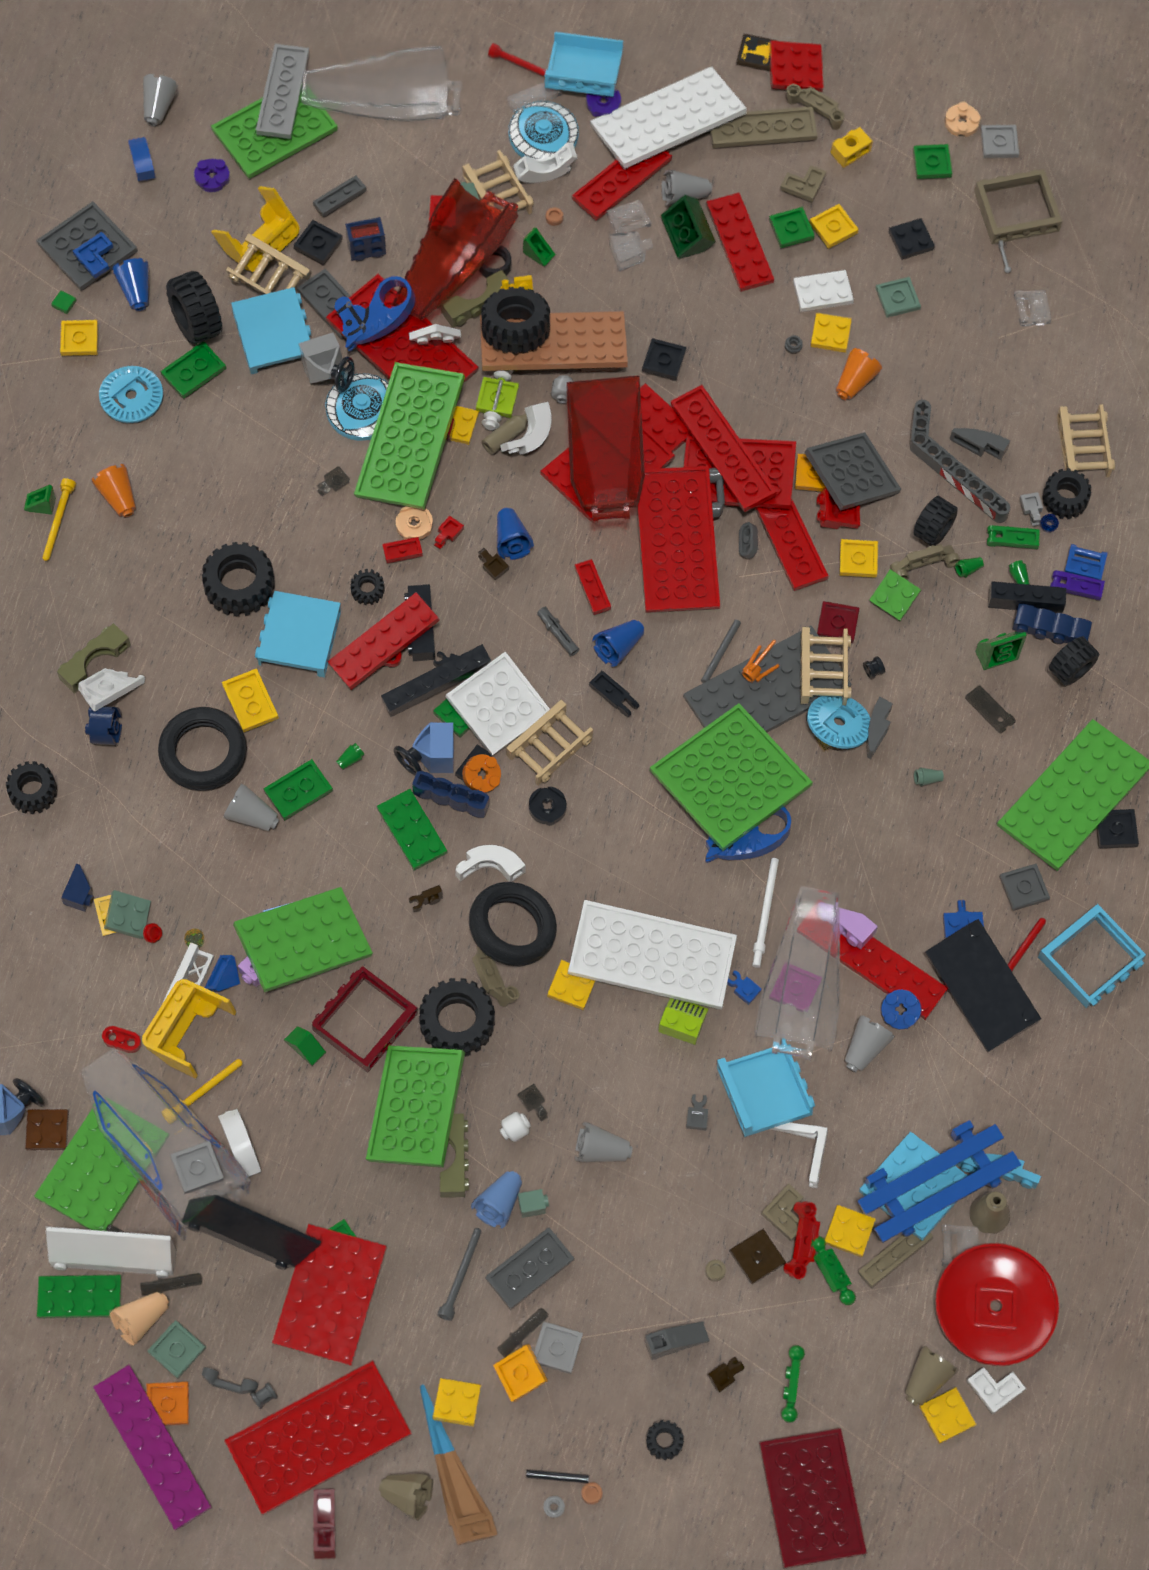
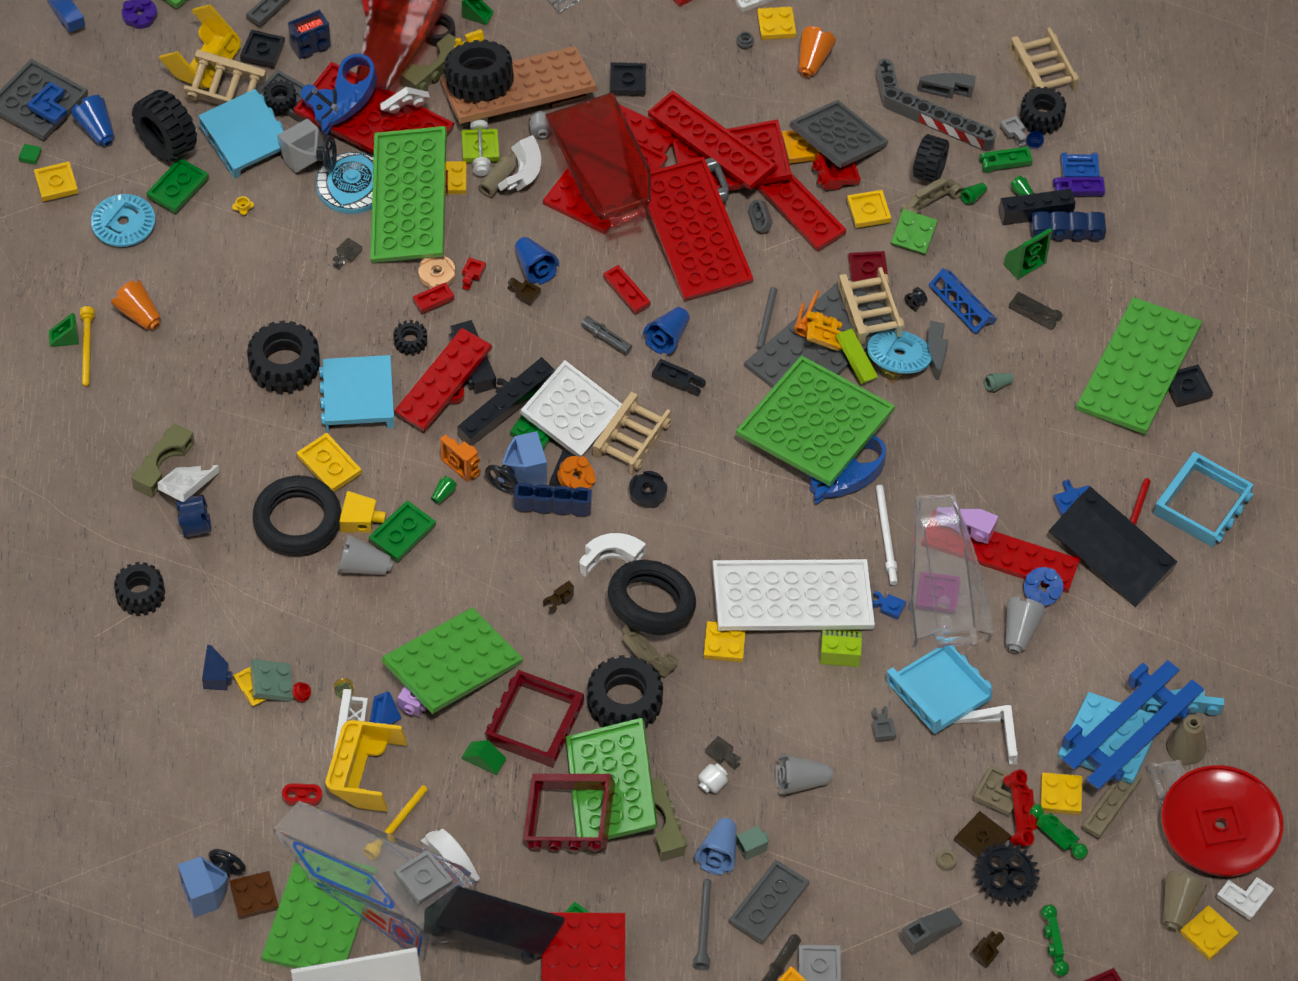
camera: 15 degrees left, 10 degrees down
(249, 401) = (242, 205): none -> yellow plate
(262, 762) = (360, 514): none -> yellow torso
(317, 290) = (280, 88): none -> black tyre
(333, 1113) = (568, 782): none -> dark red window
(375, 728) = (460, 458): none -> orange plate
(412, 829) = (524, 541): green plate -> none
(765, 1320) = (1006, 873): none -> black gear
(768, 688) = (823, 334): none -> light orange plate
(794, 716) = (856, 356): none -> lime tile
(926, 679) = (968, 297): none -> blue fence
(1024, 887) = (1120, 455): dark grey plate -> none
(1074, 660) = (1100, 248): black tyre -> none

